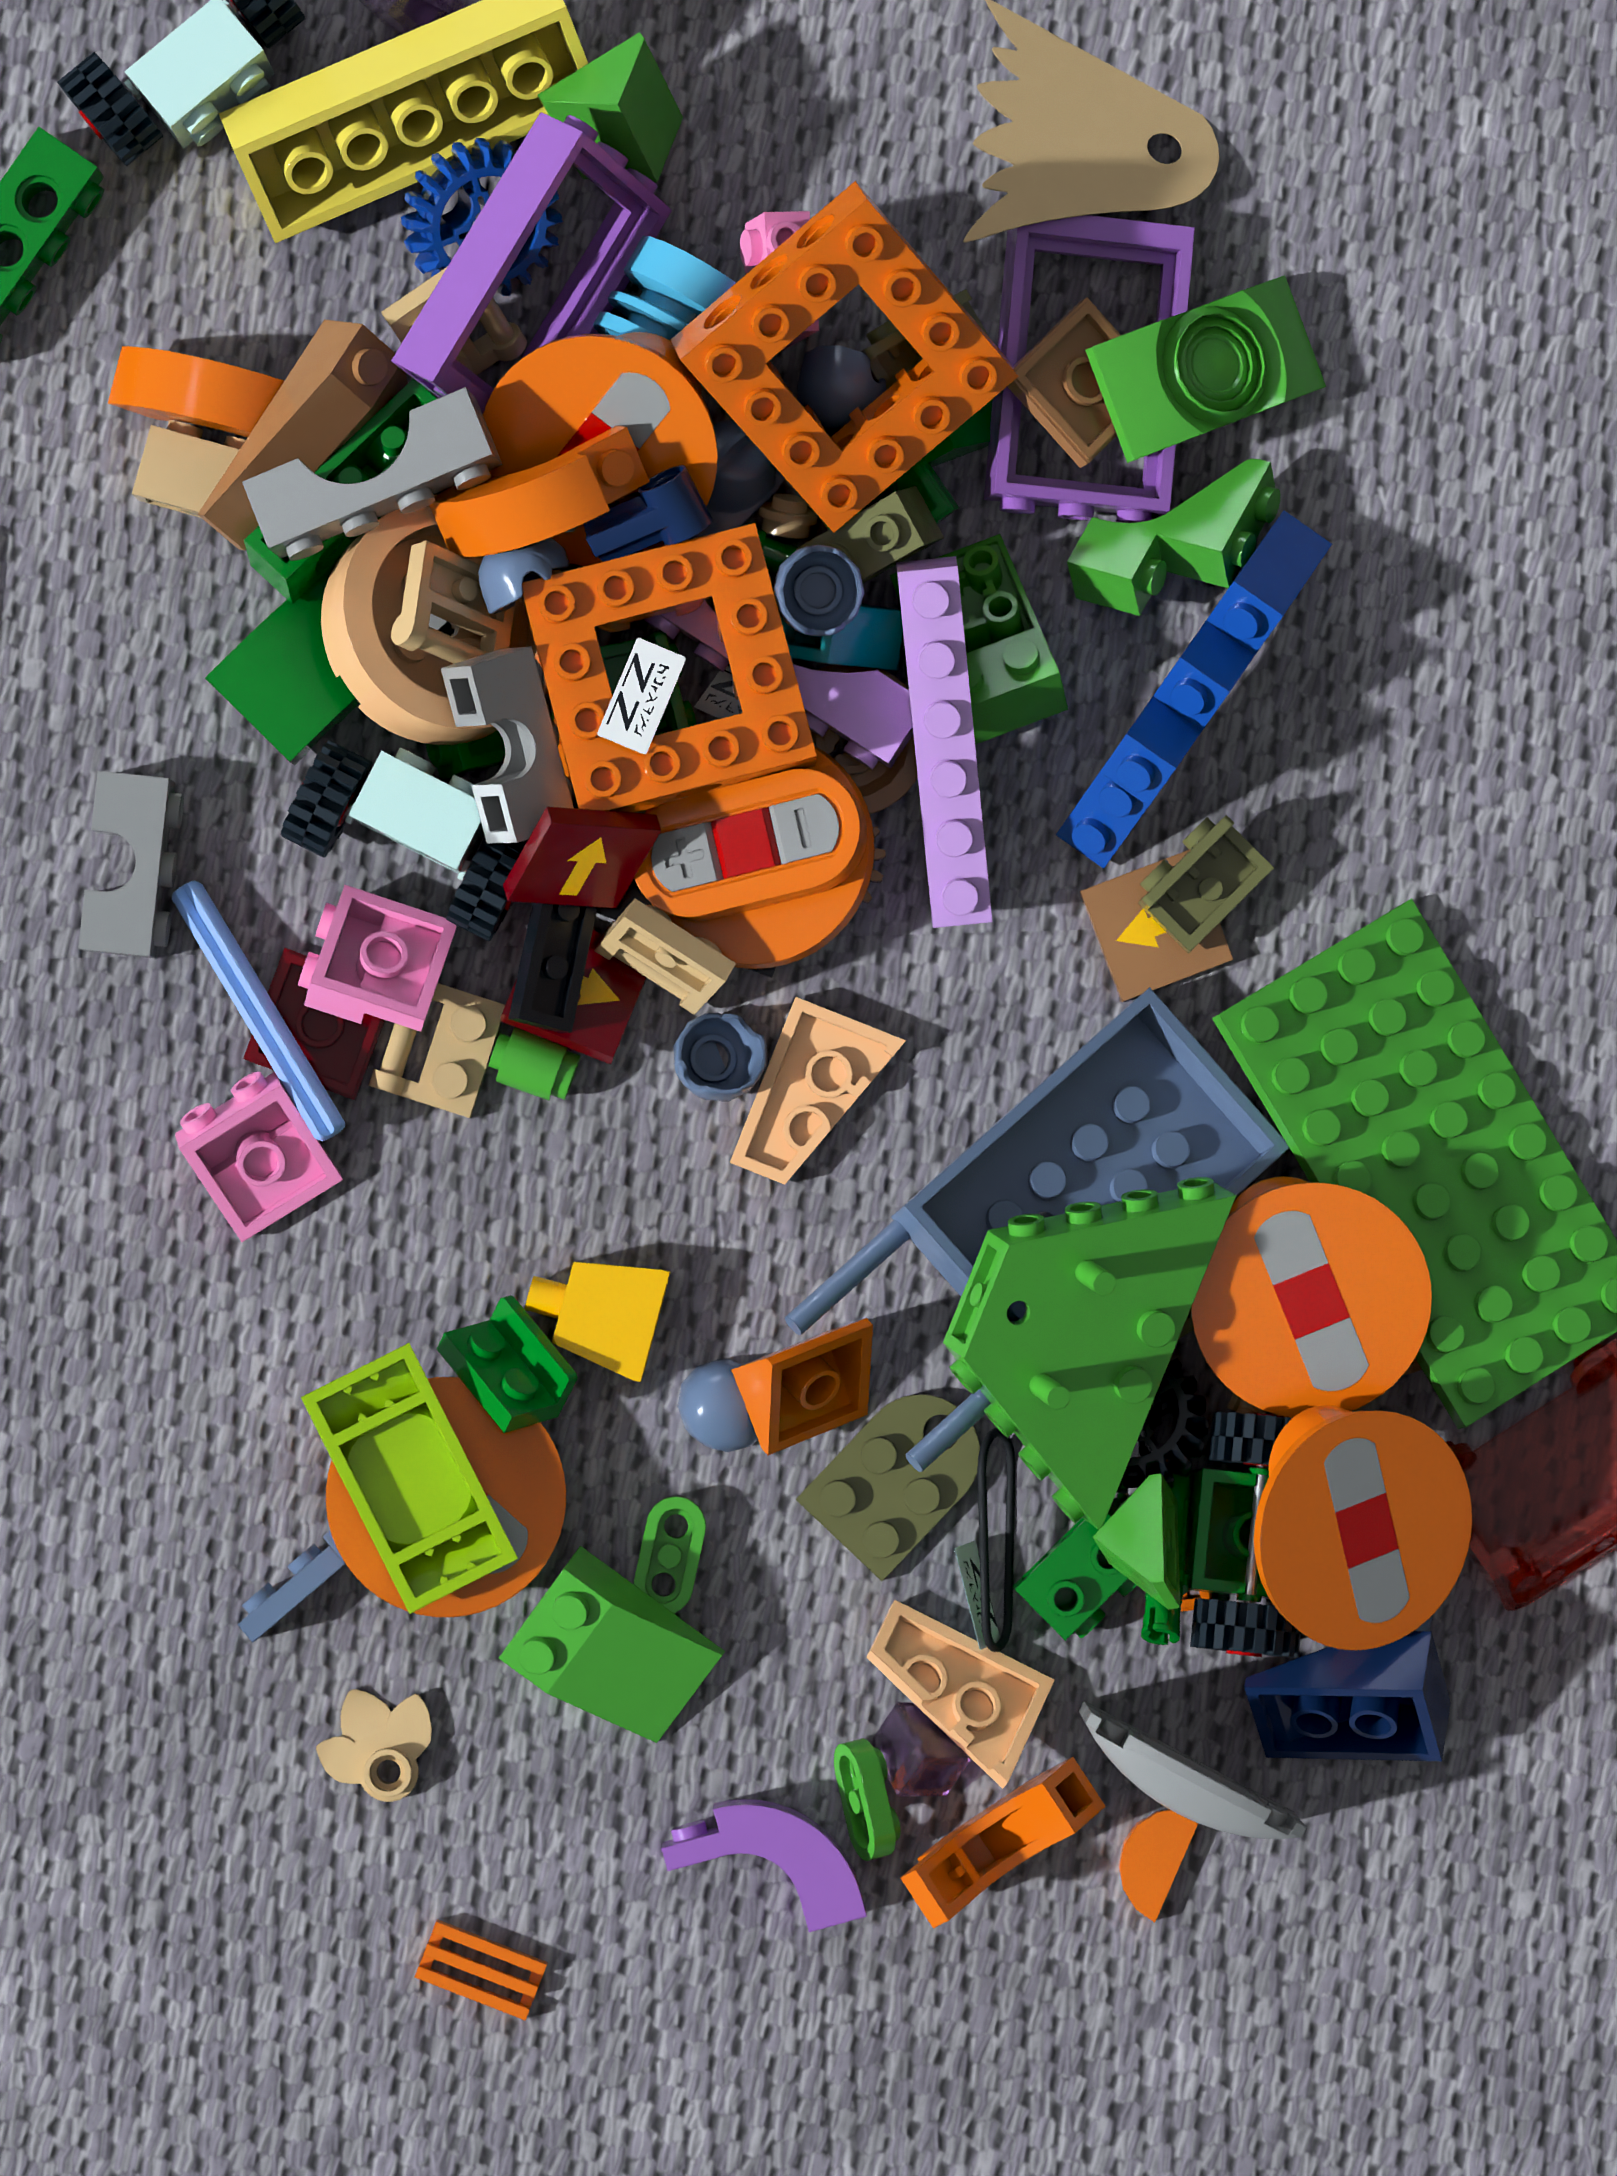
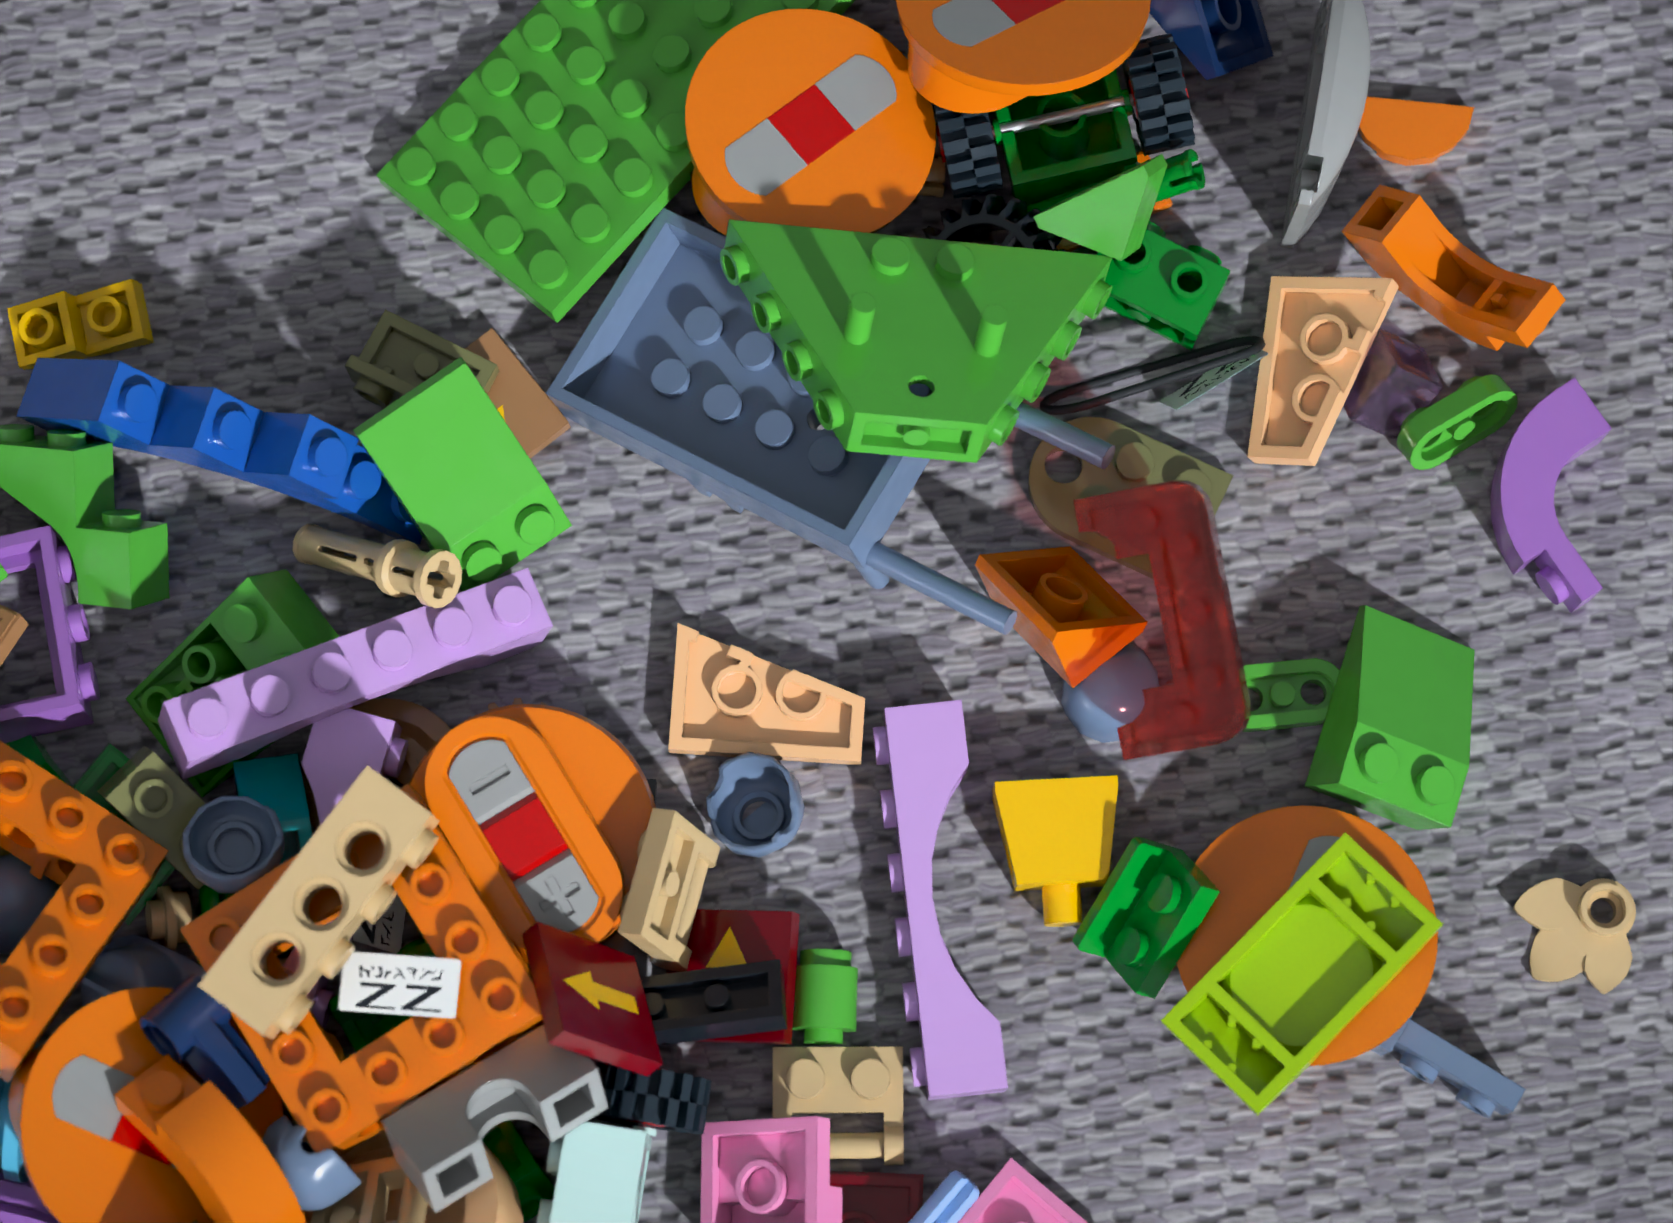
camera: 105 degrees left, 10 degrees down
(461, 1168) = (958, 1034): none -> lavender arch
(684, 564) = (241, 972): none -> tan brick
(836, 1490) = (1209, 687): none -> clear red windscreen
(1028, 804) = (327, 549): none -> tan pin
(1089, 889) = (463, 475): none -> bright green slope
(1356, 591) = (80, 324): none -> yellow slope

